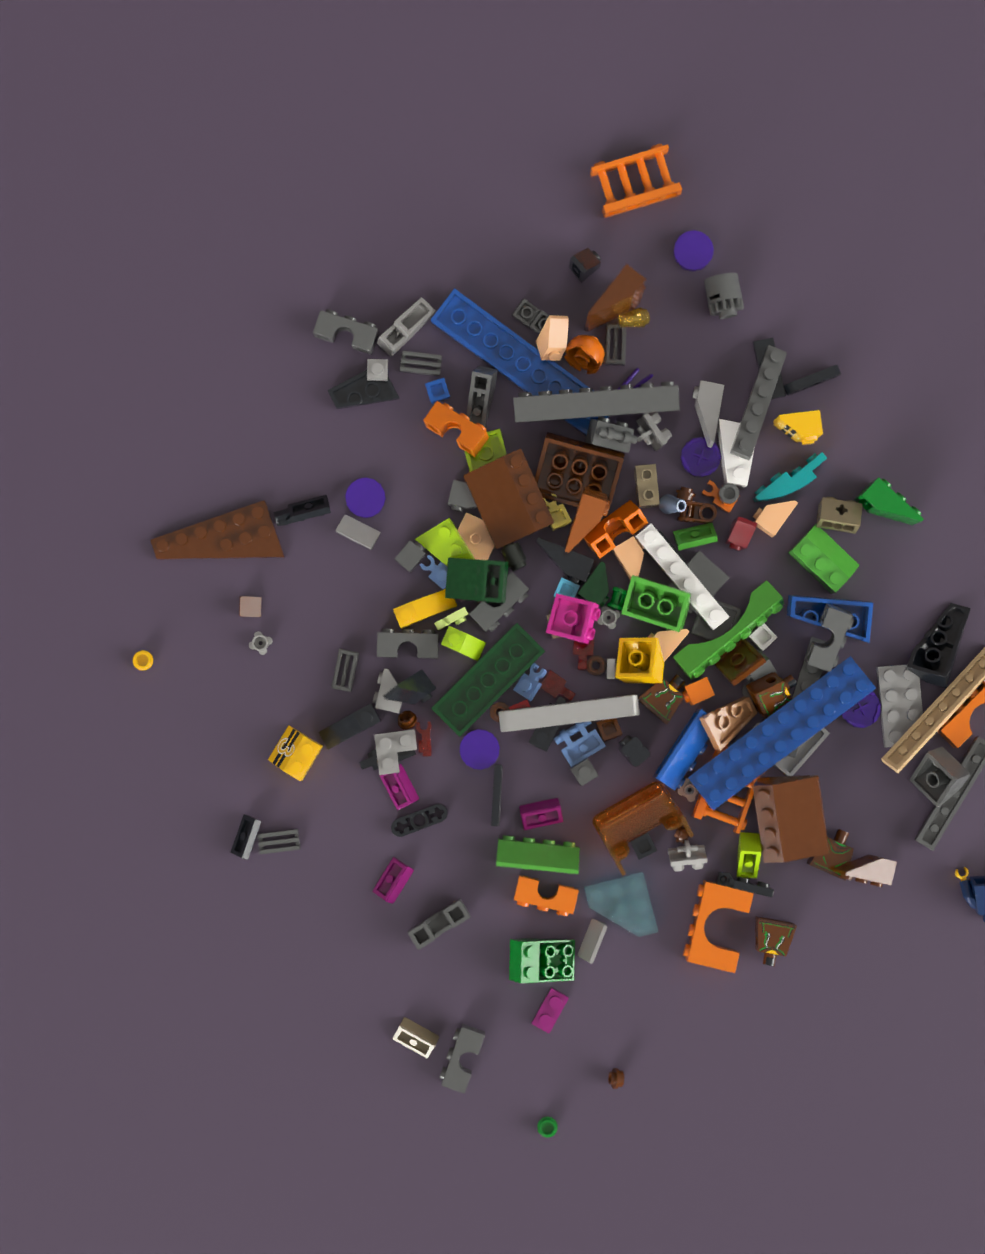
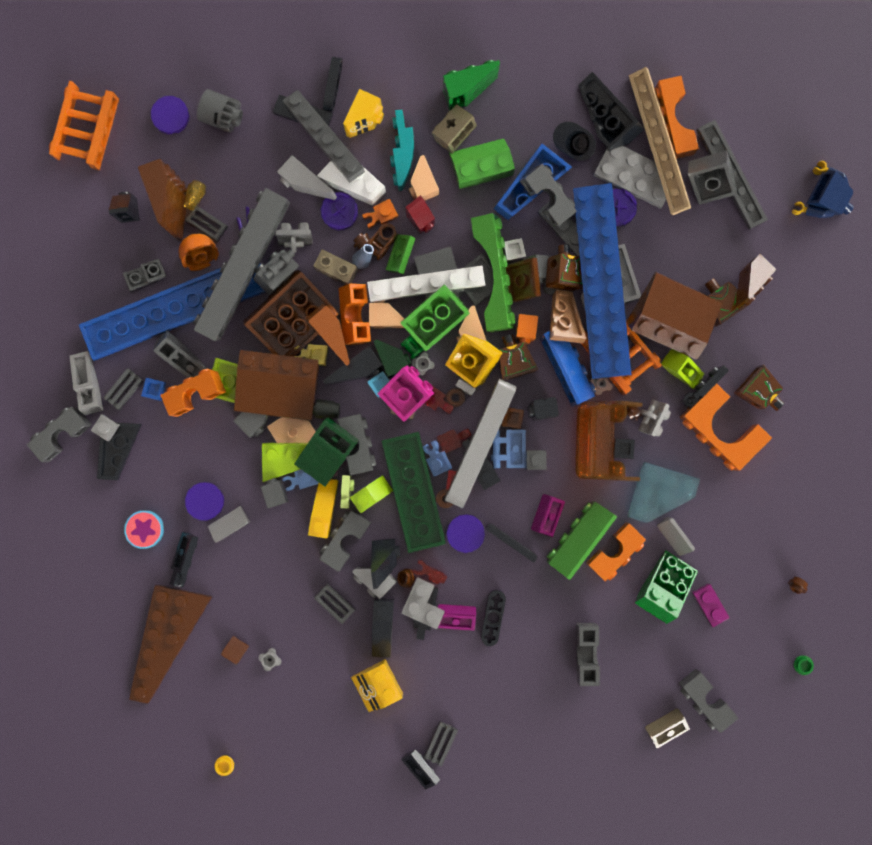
camera: 55 degrees left, 0 degrees up
(307, 459) = (144, 529): none -> tile
(393, 880) = (529, 669): magenta slope -> none
(553, 338) = (167, 268): light nougat slope -> none
(728, 493) = (382, 205): dark grey tile -> none
(895, 631) = (574, 141): none -> black piece

